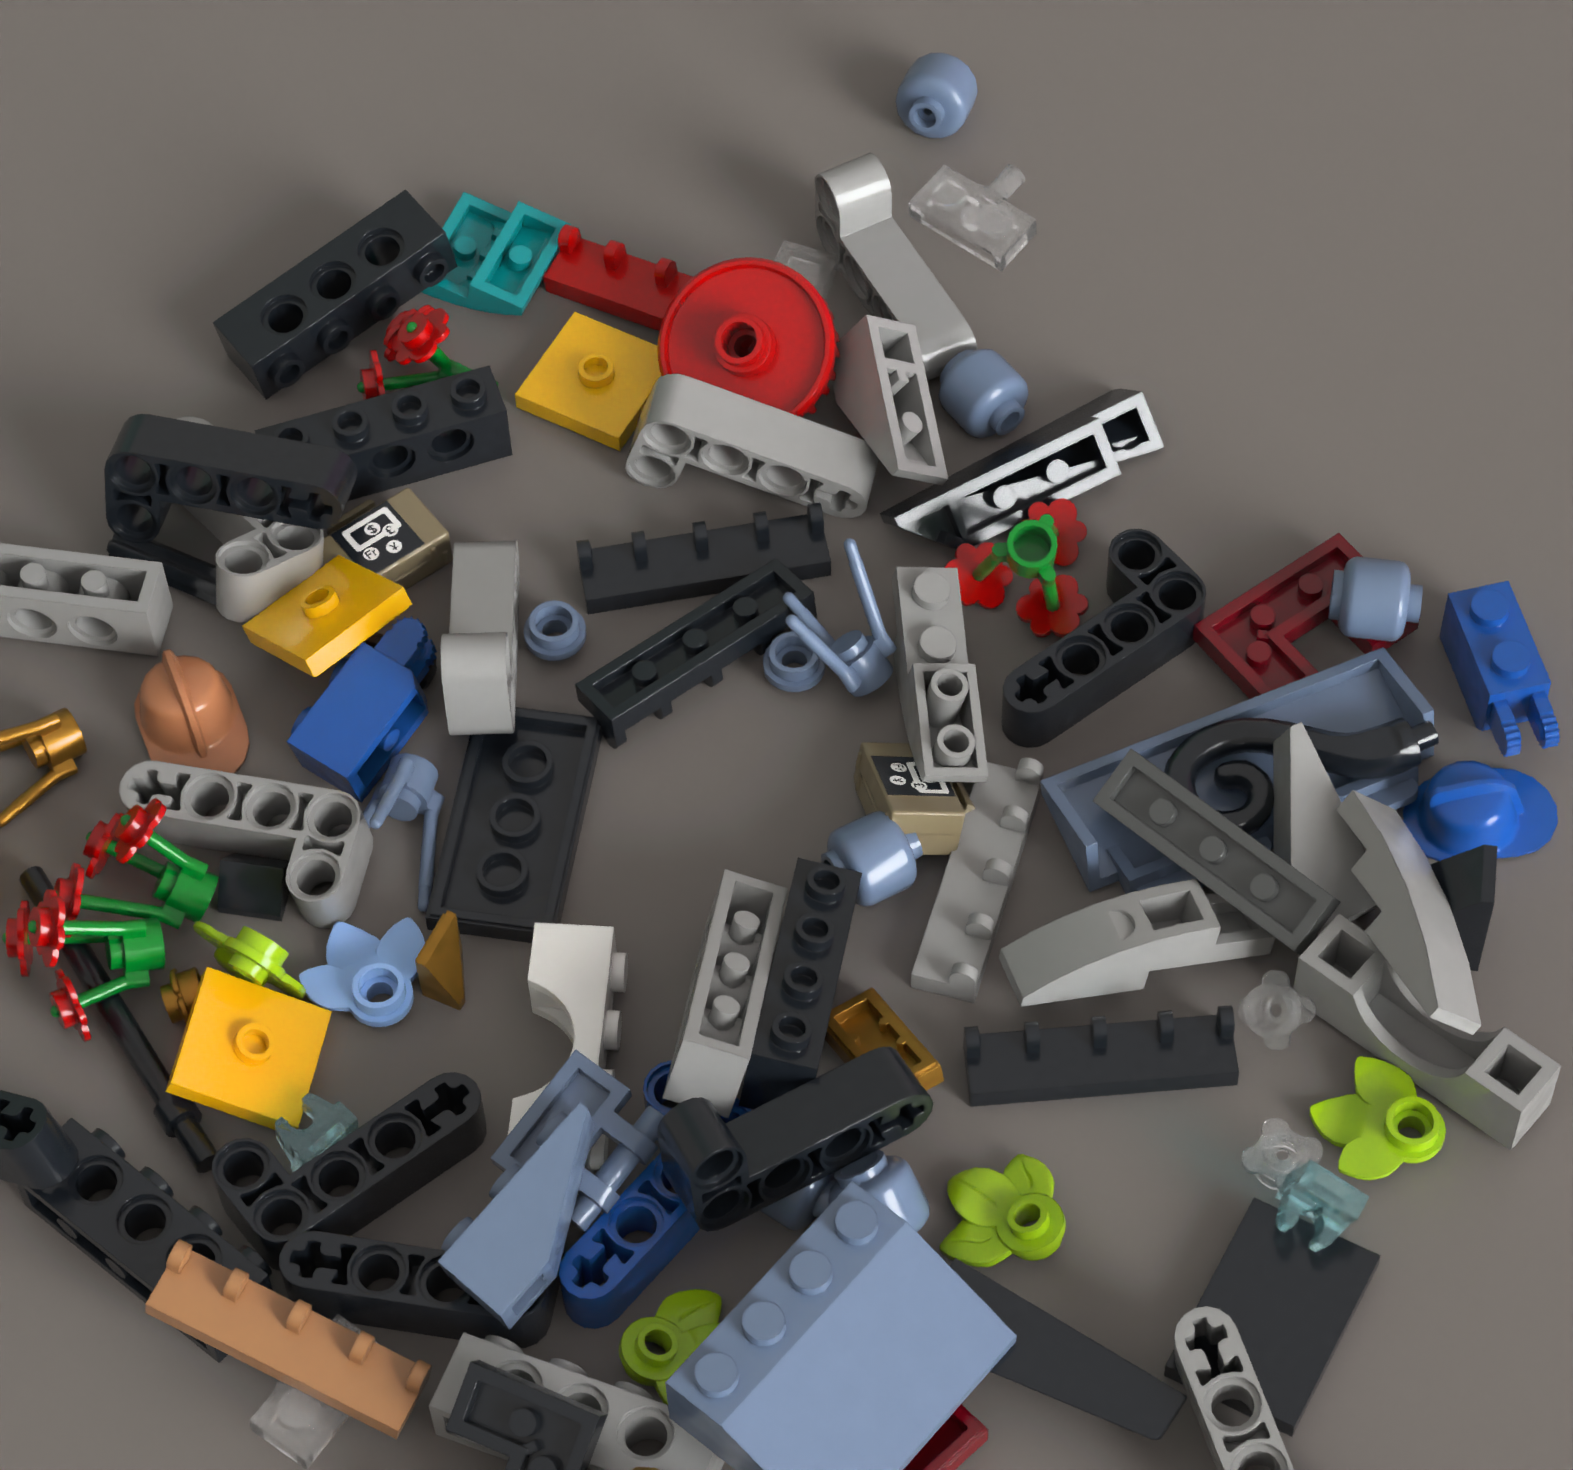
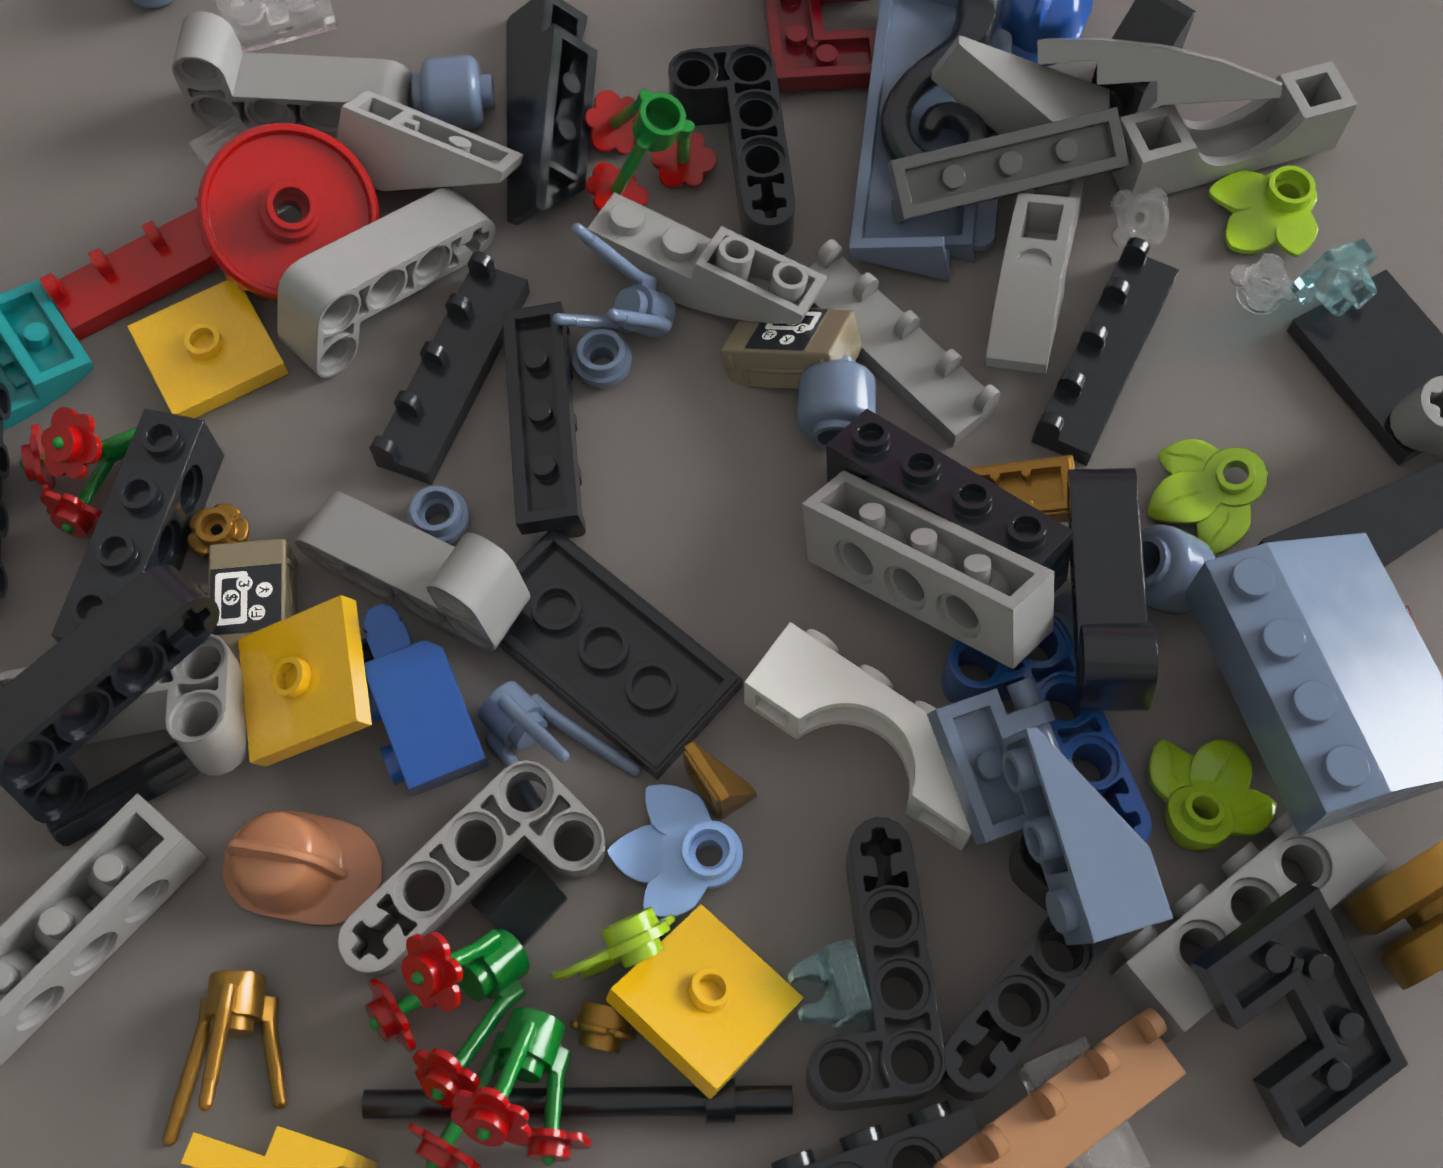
camera: 60 degrees left, 10 degrees up
(441, 501) = (206, 519): none -> pearl gold plate

